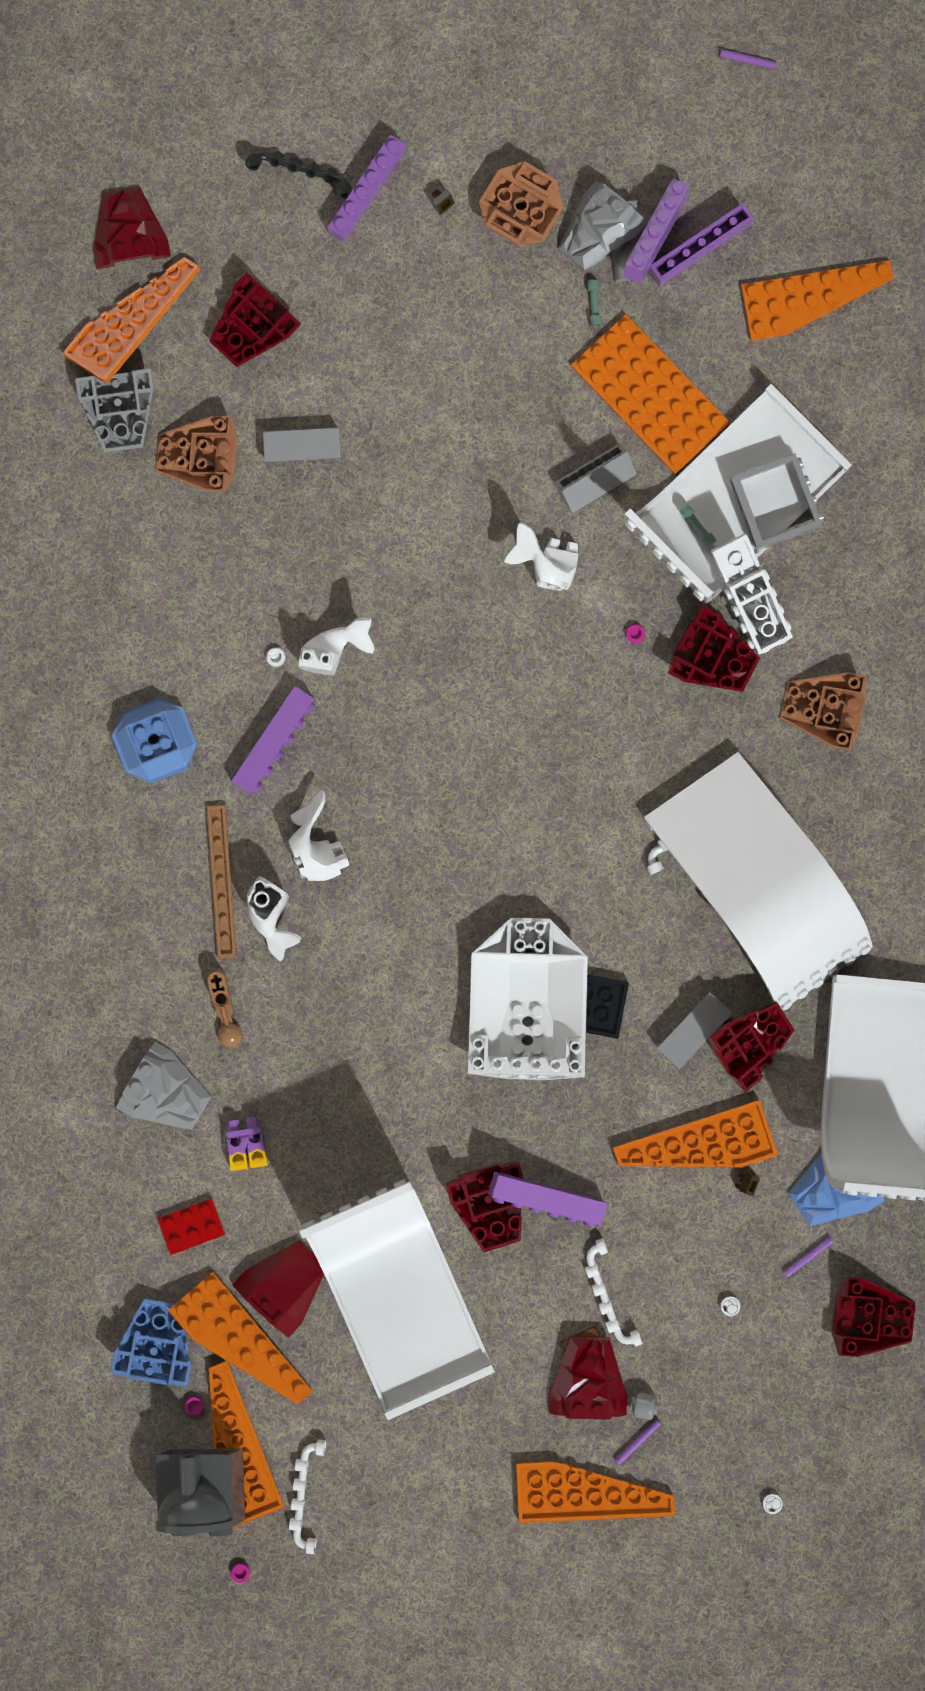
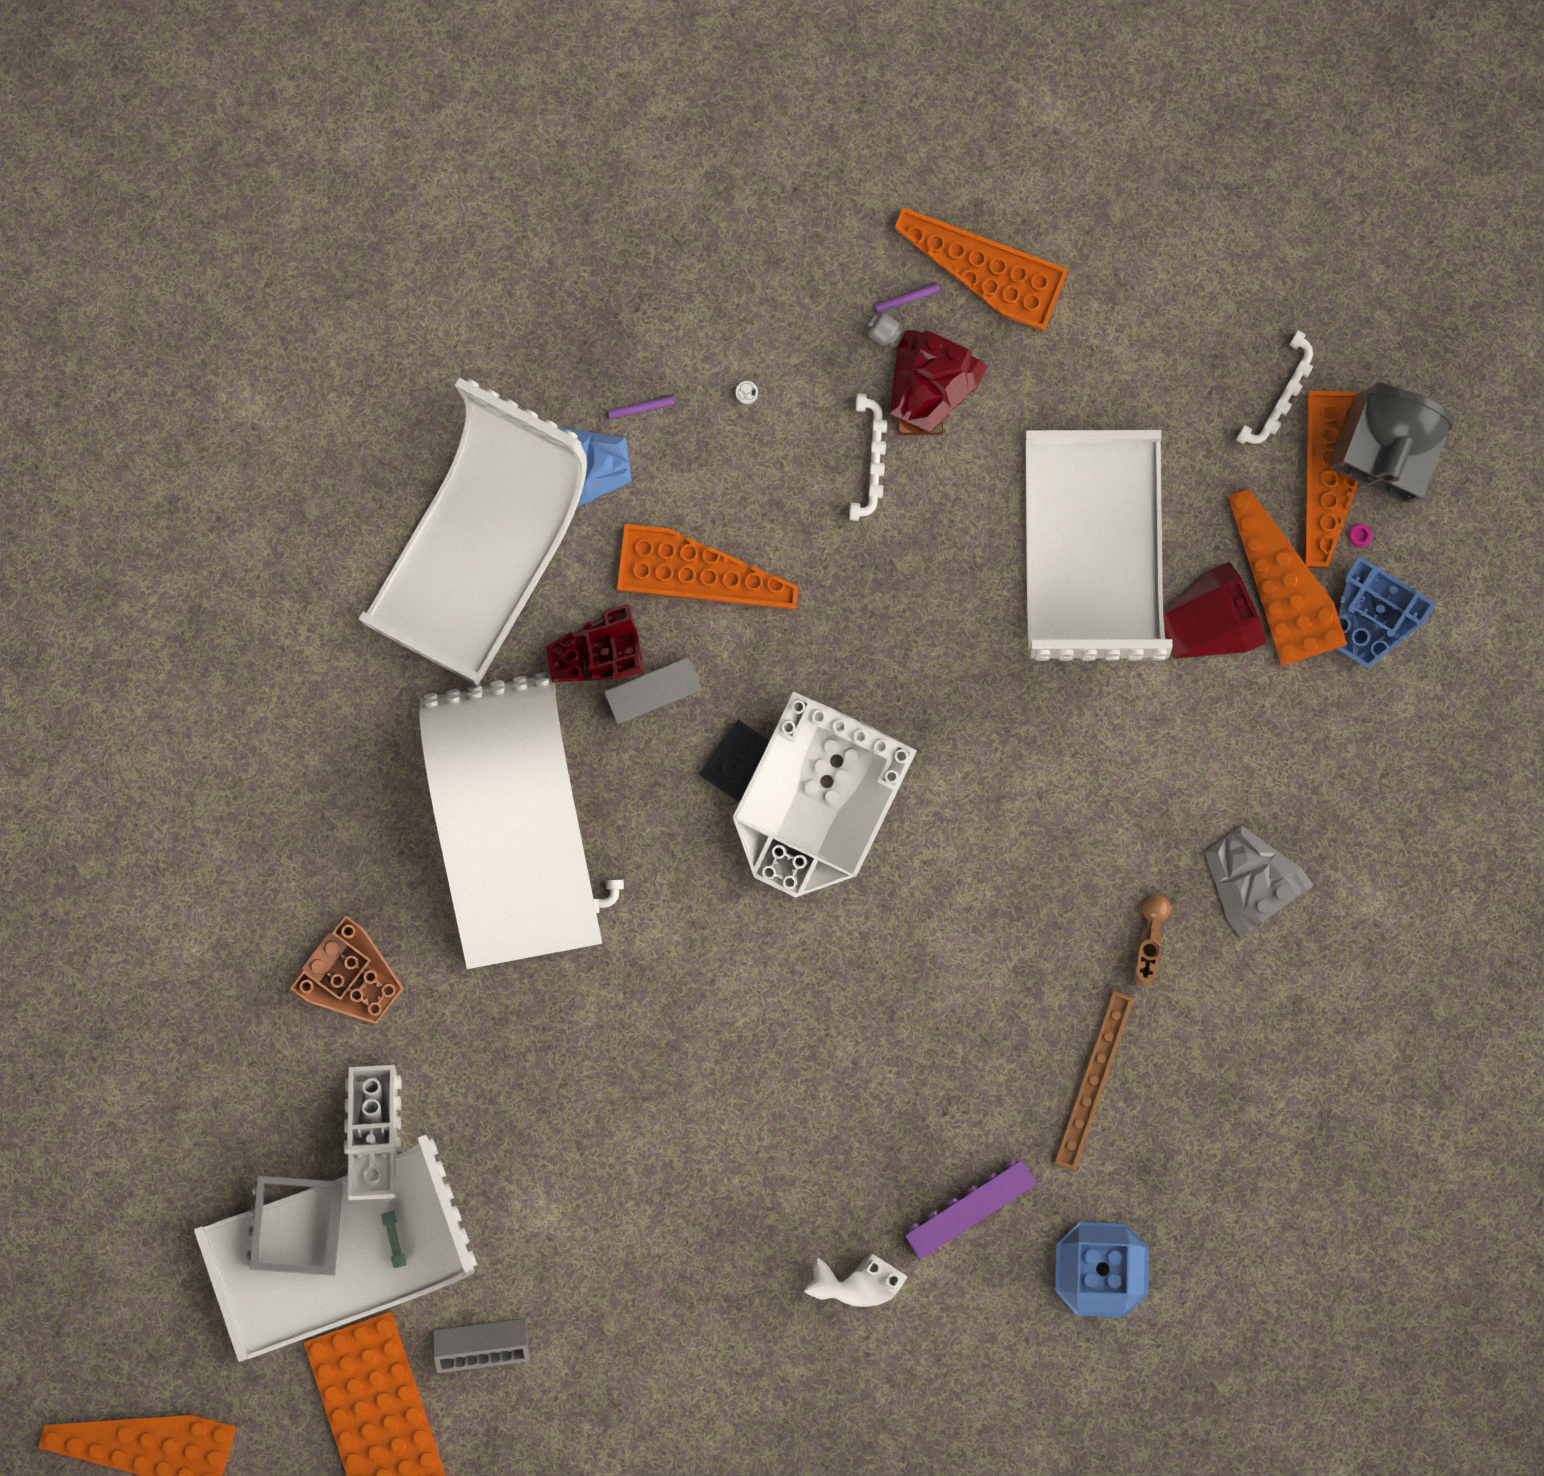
camera: 150 degrees left, 5 degrees down
(191, 1226) = (1284, 723): red plate -> none
(240, 1572) = (1383, 345): dark pink tile -> none
(247, 1139) = (1187, 789): medium lavender hips -> none
(264, 907) = (1060, 1025): white hips -> none
(275, 657) = (926, 1303): white tile -> none
(314, 859) = (981, 1057): white hips -> none
(488, 1221) = (953, 606): dark red wedge -> none
(547, 1198) = (890, 583): medium lavender brick -> none
(552, 567) = (575, 1264): white hips -> none
(635, 633) = (517, 1151): dark pink tile -> none
(712, 654) = (445, 1087): dark red wedge -> none
(748, 1185) = (669, 507): dark brown tile -> none
(772, 1503) = (795, 176): white tile -> none
(870, 1318) = (607, 315): dark red wedge -> none

